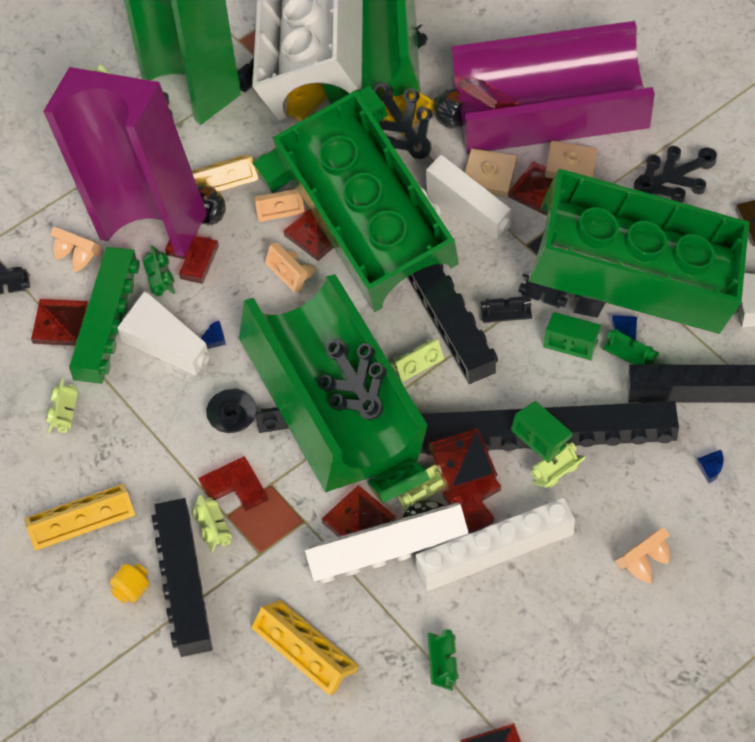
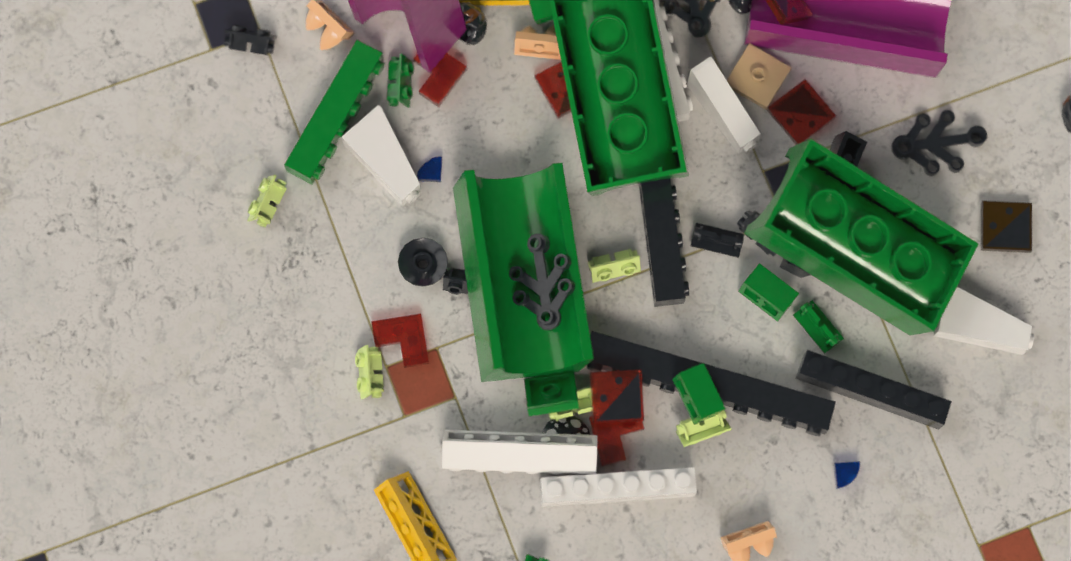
camera: 10 degrees right, 20 degrees up
(58, 322) = (290, 103): clear red tile -> none
(79, 516) = (251, 325): yellow fence -> none
(129, 583) = (278, 408): yellow head -> none
(182, 577) = (327, 419): black brick -> none
(286, 267) = (521, 113): light nougat tile -> none
(356, 513) = (504, 410): clear red tile -> none
(571, 158) = (841, 96): tan plate -> none
(626, 325) = (823, 297): clear blue tile -> none

